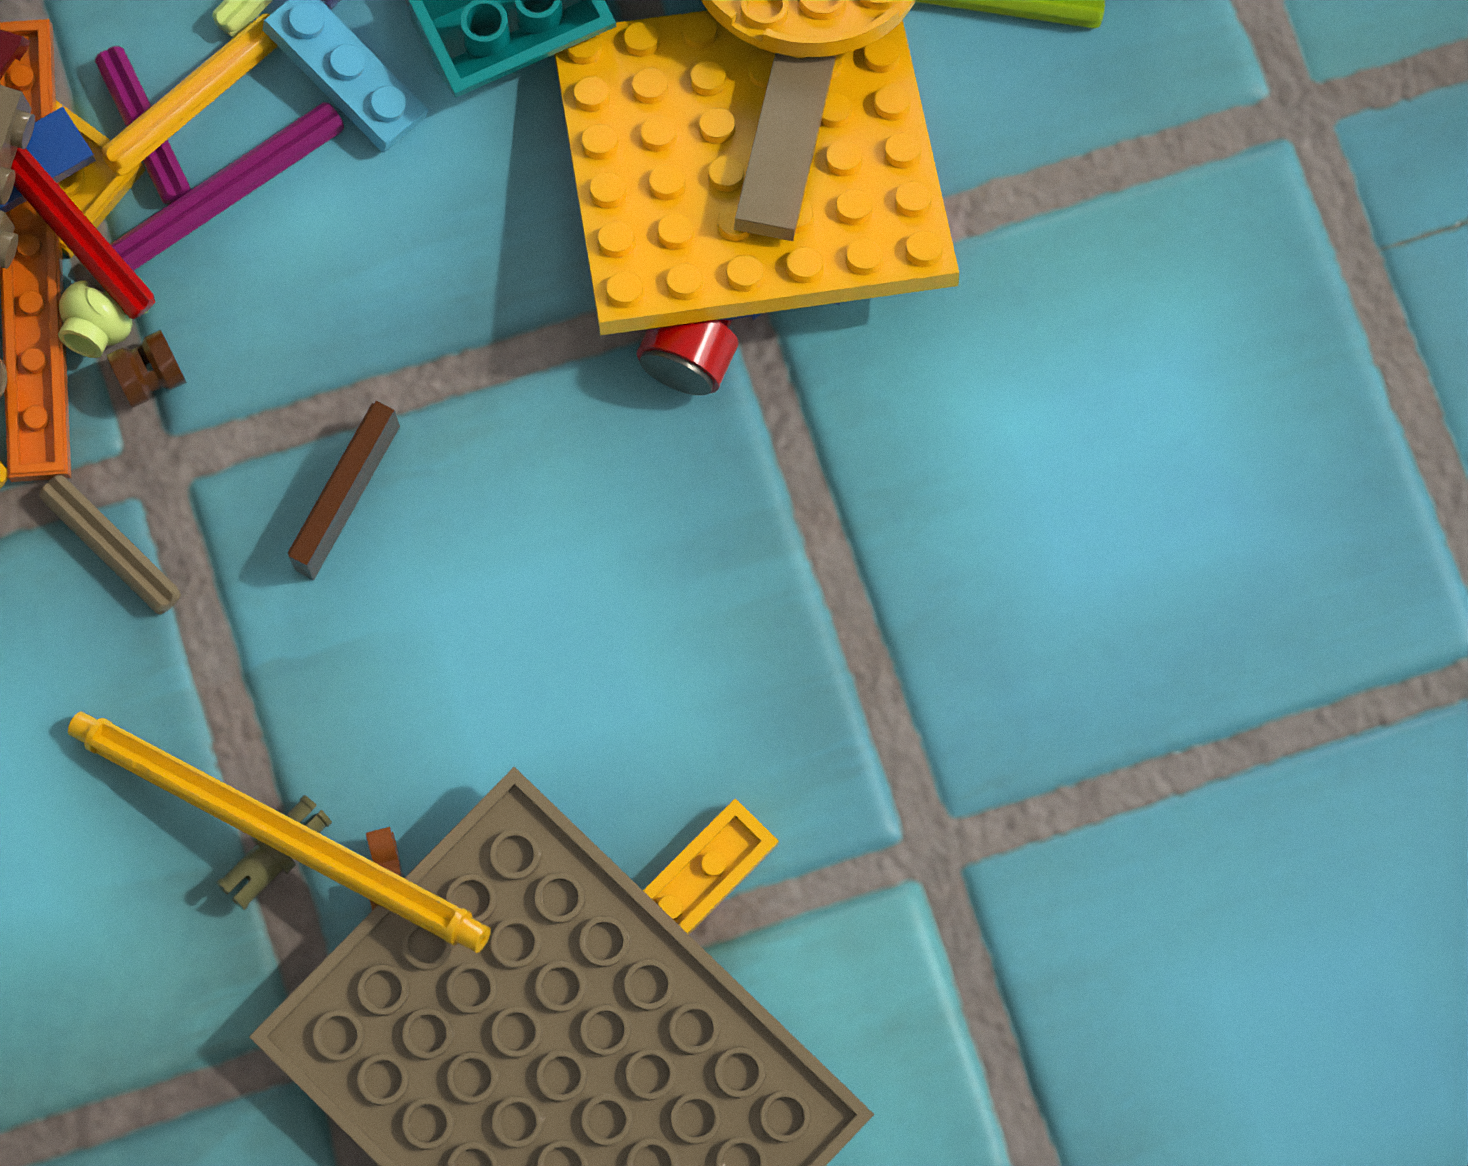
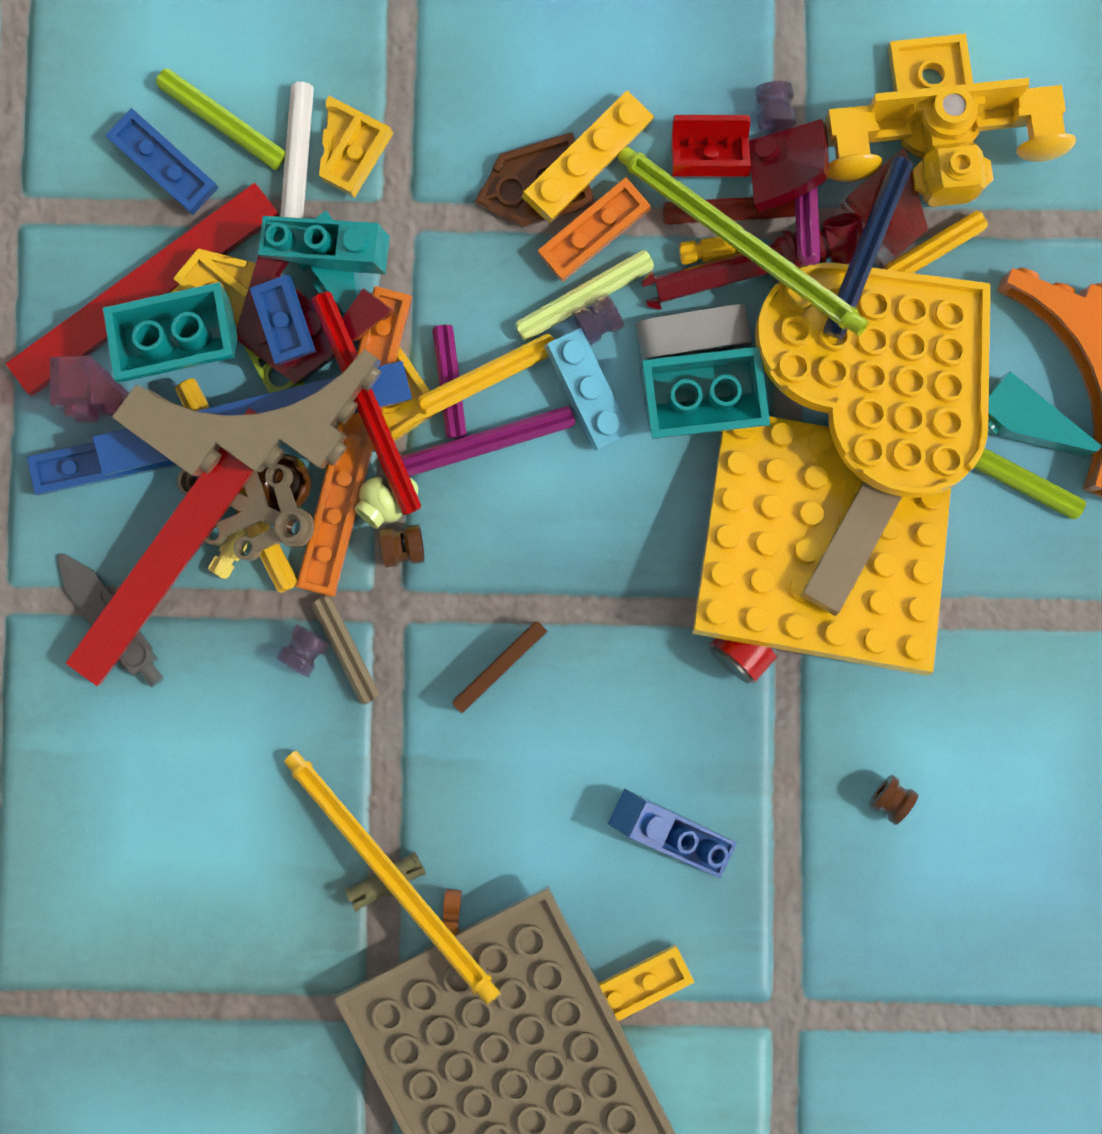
camera: 20 degrees right, 10 degrees up
(46, 561) = (302, 650): none -> clear purple wheel
(673, 641) = (671, 833): none -> blue slope
(977, 487) = (893, 799): none -> reddish brown wheel

